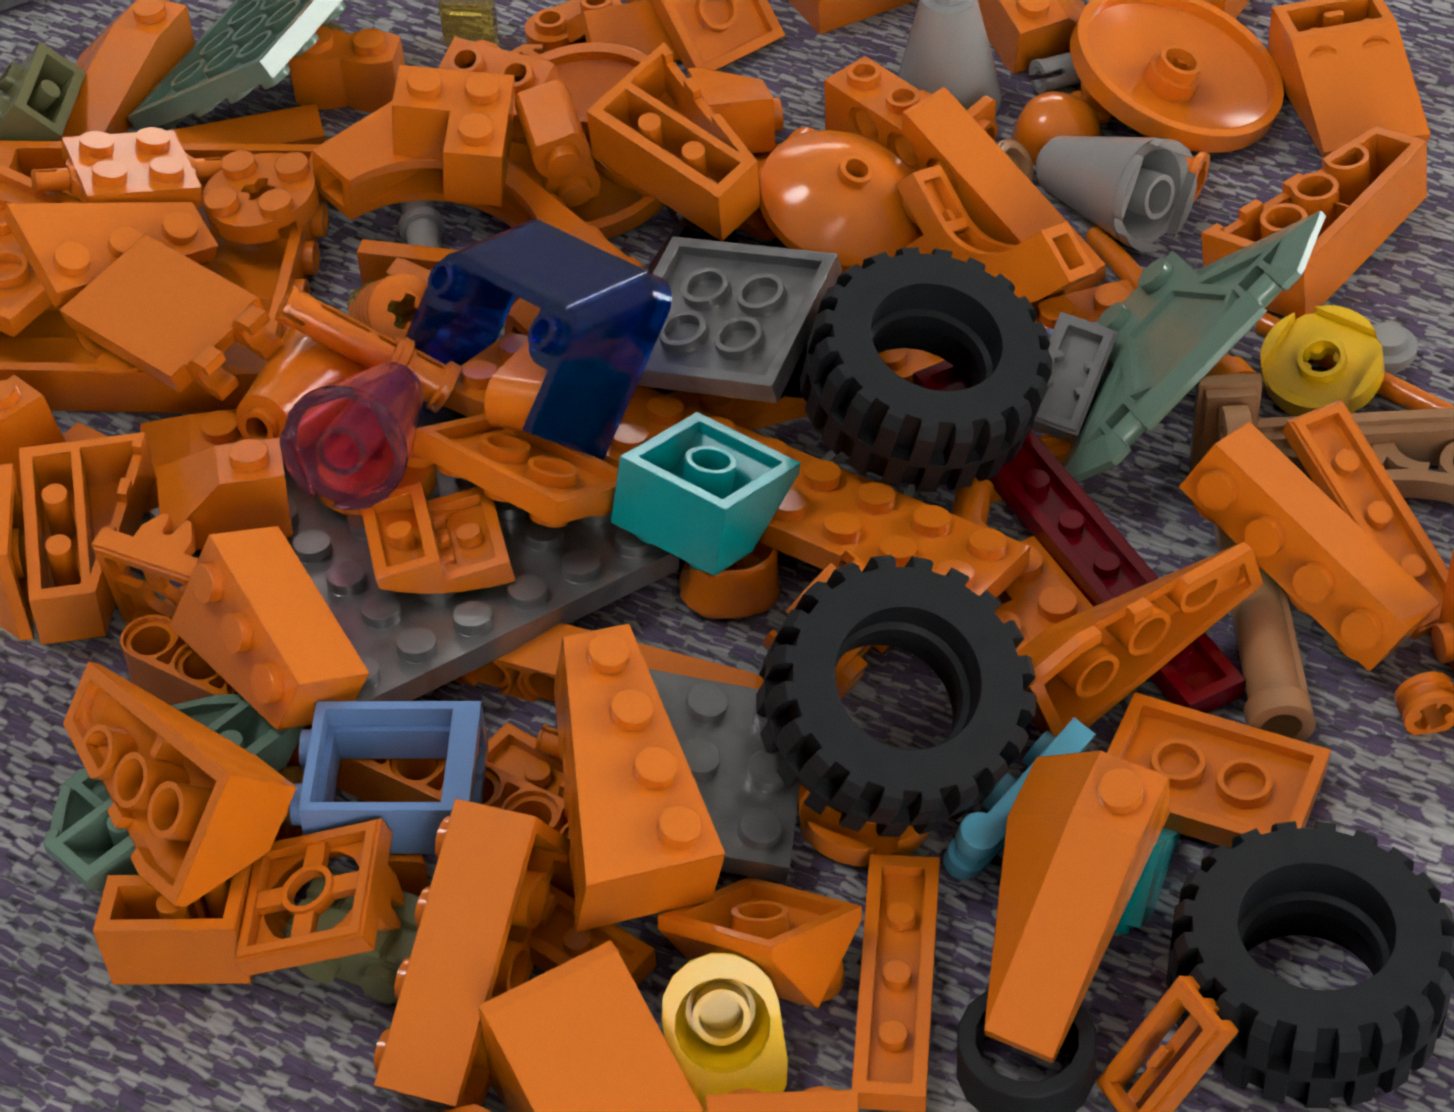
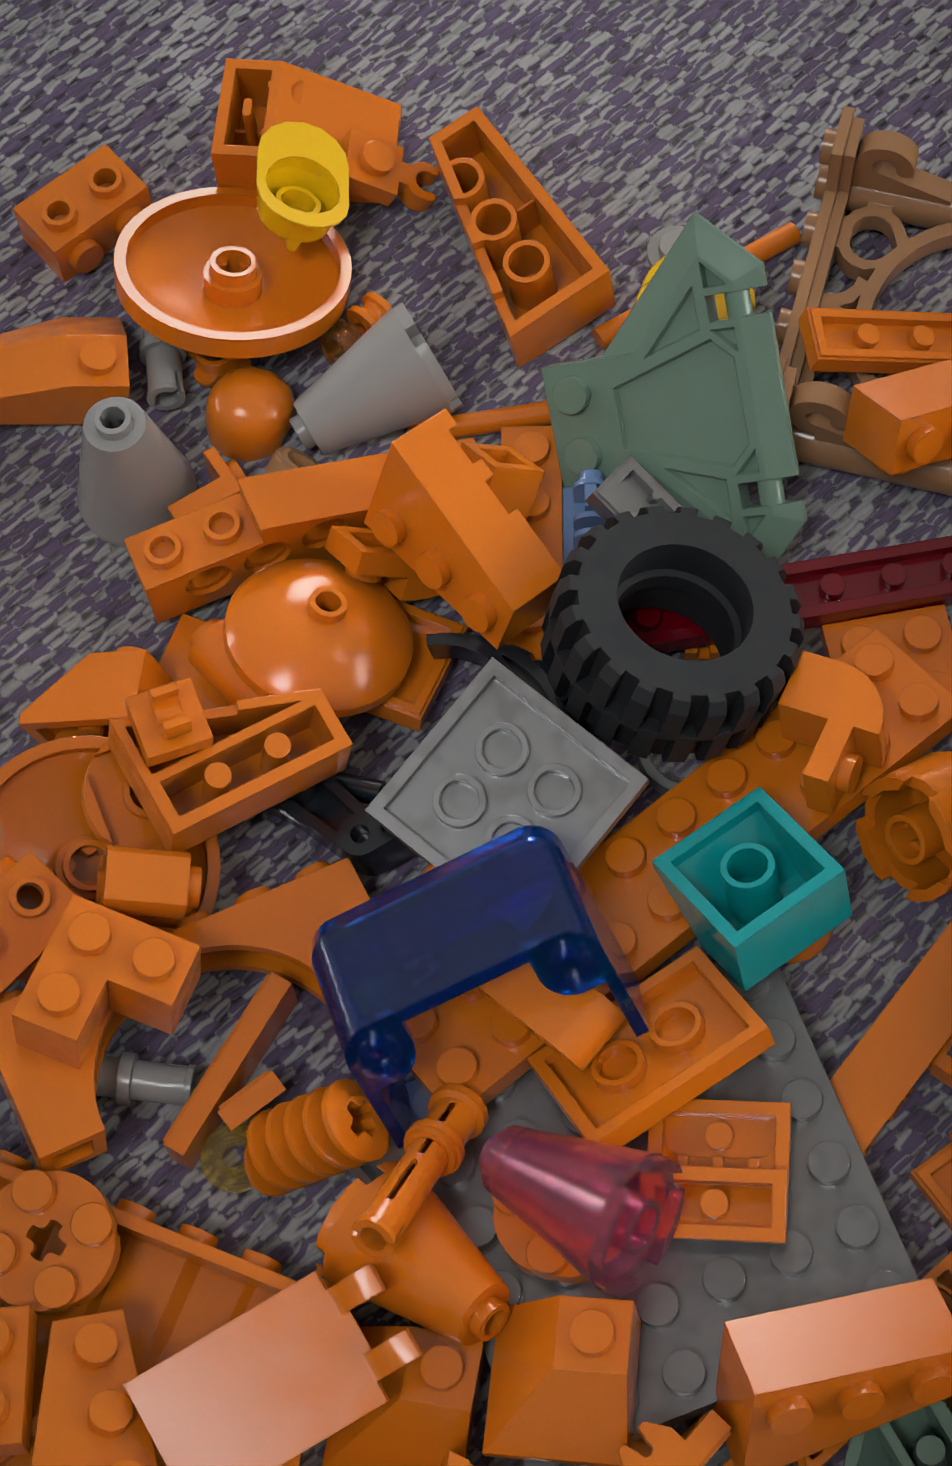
camera: 70 degrees left, 20 degrees up
(674, 69) = (168, 722): none -> orange tile
(887, 508) = (838, 715): none -> orange brick
(971, 190) = (459, 535): none -> orange wedge
(1275, 62) = (301, 182): none -> yellow piece
(1335, 116) = (380, 174): none -> orange plate

